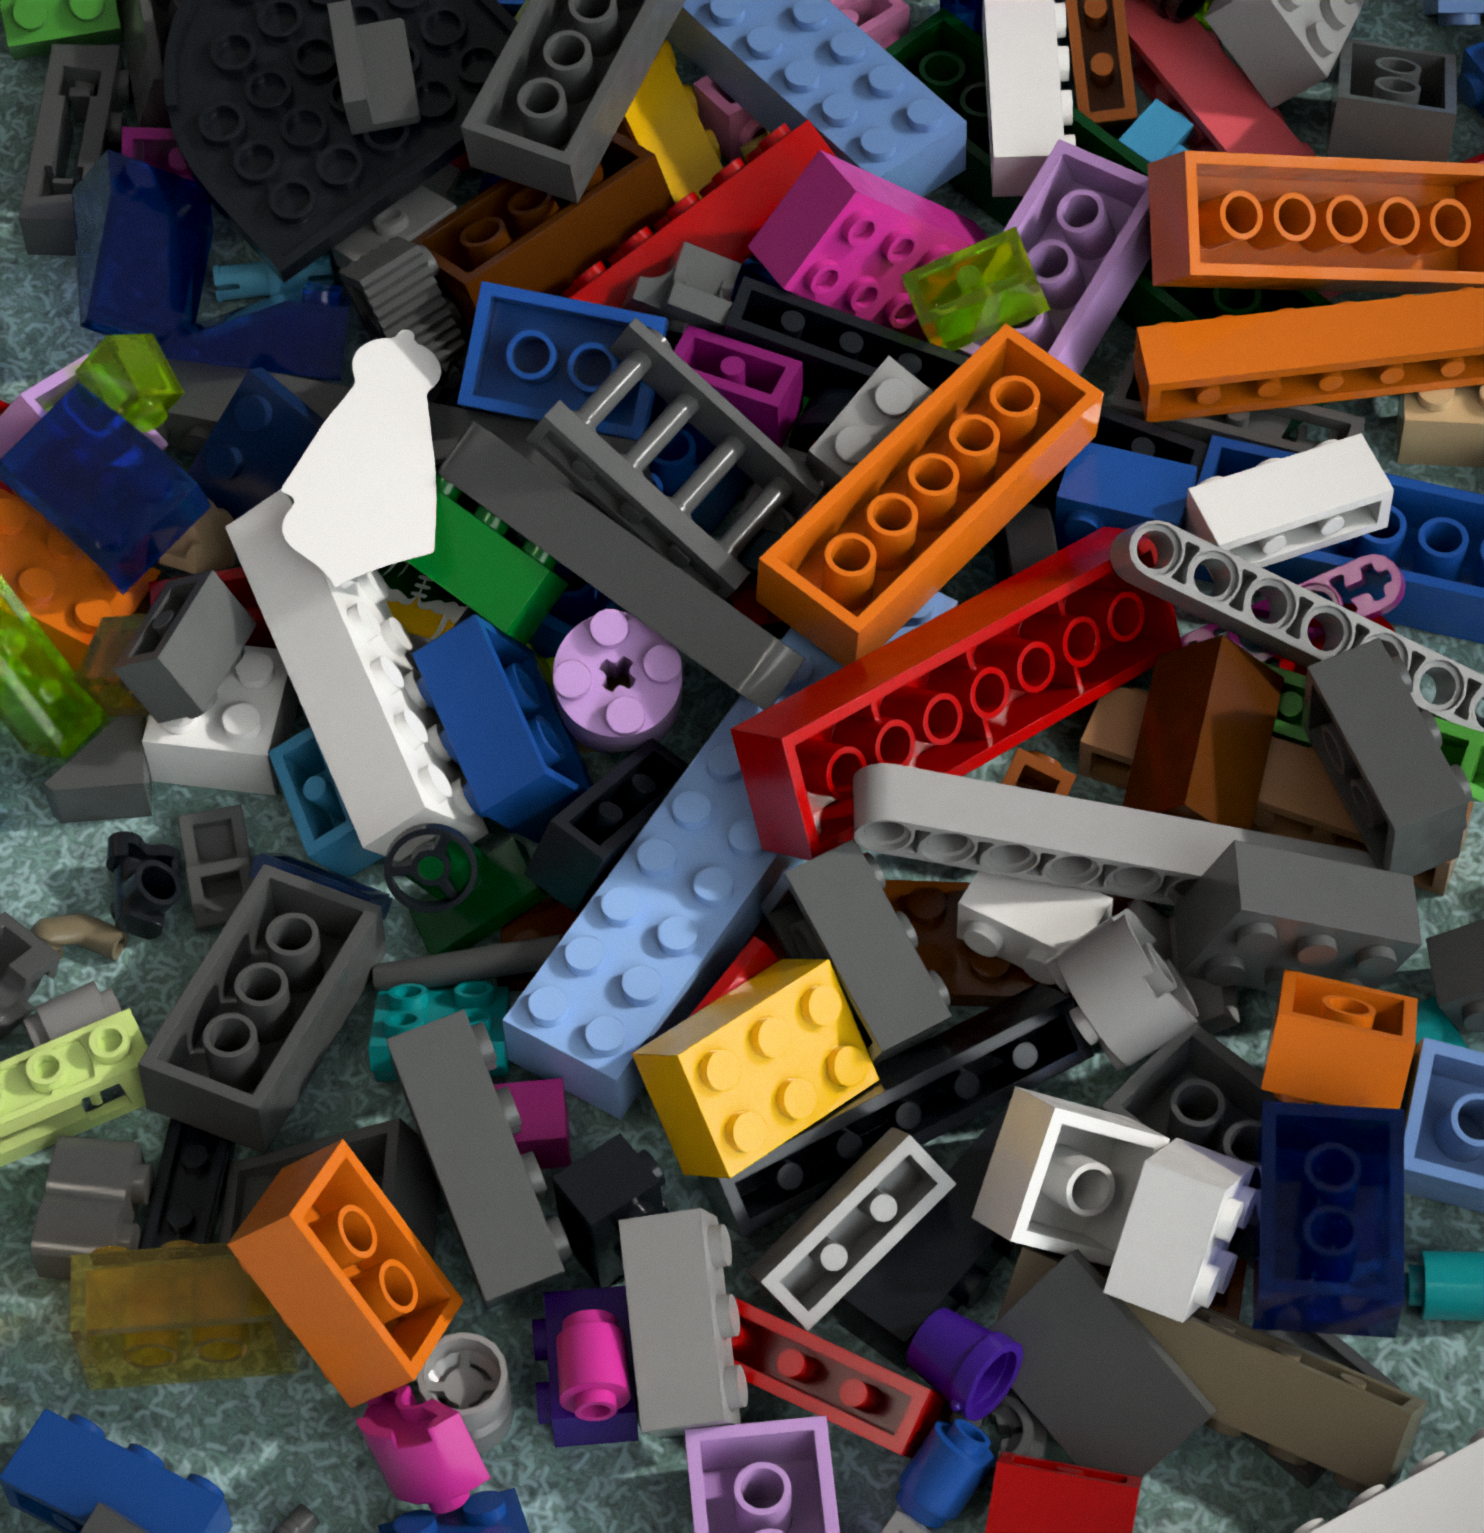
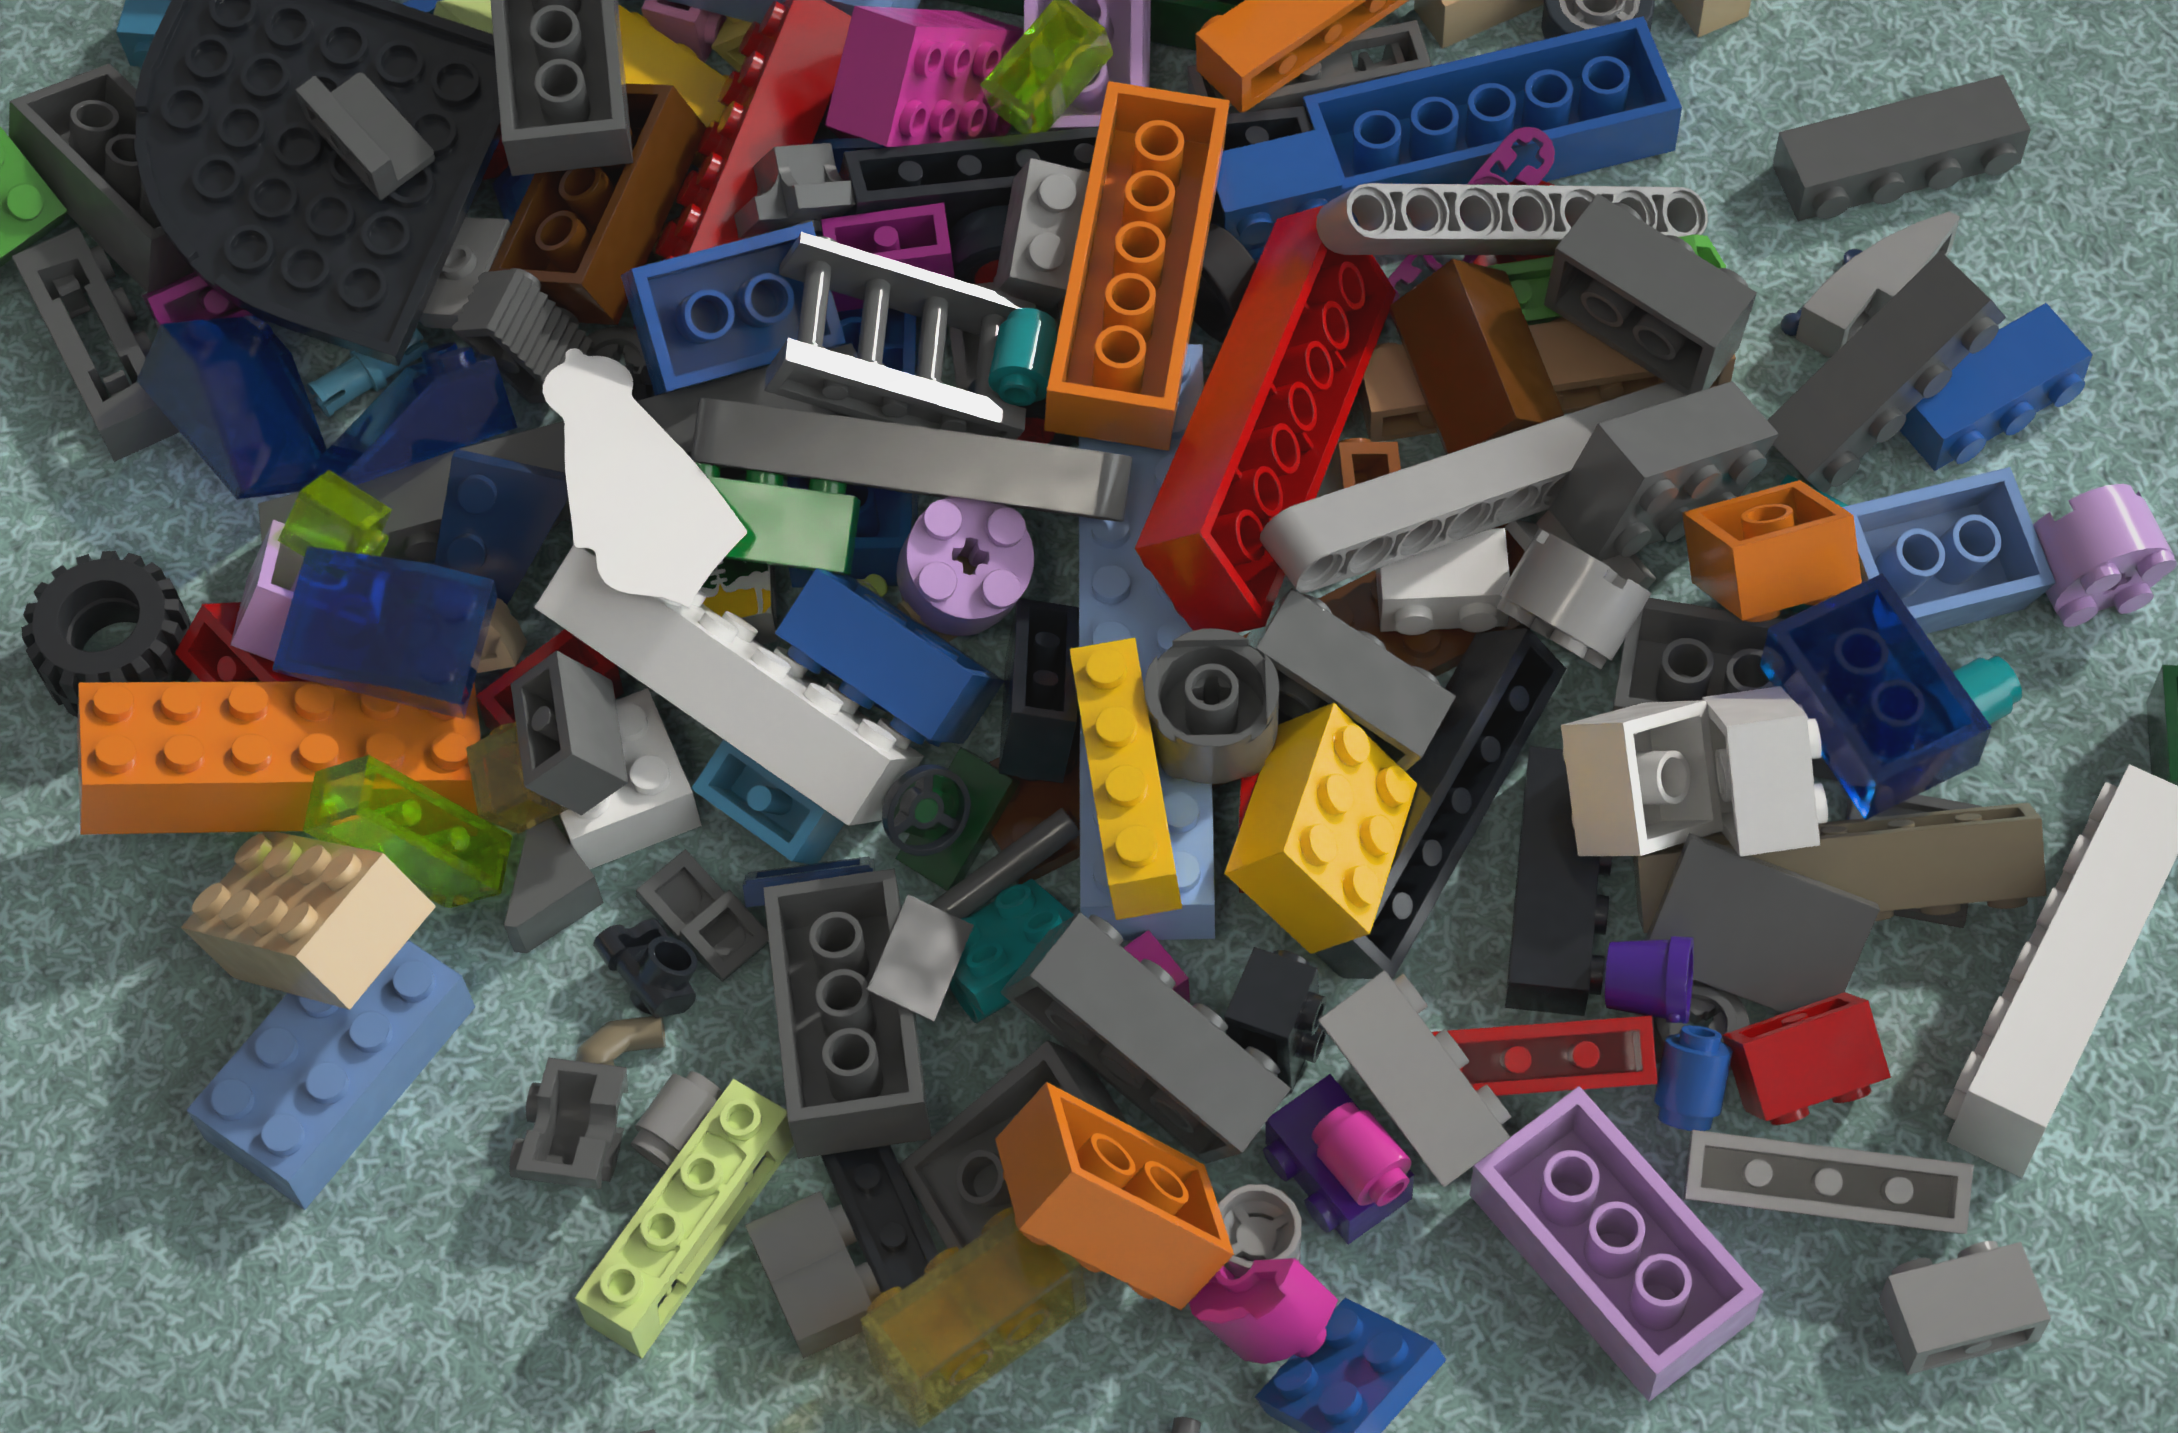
camera: 30 degrees left, 5 degrees up
(346, 991) = (920, 957): none -> sticker
(601, 927) = (1125, 779): none -> yellow brick
(716, 905) = (1212, 707): none -> dark grey brick
(770, 521) = (1023, 356): none -> teal brick
(851, 1227) = (1482, 919): light grey brick -> none
(1293, 503) = (1421, 118): white brick -> none

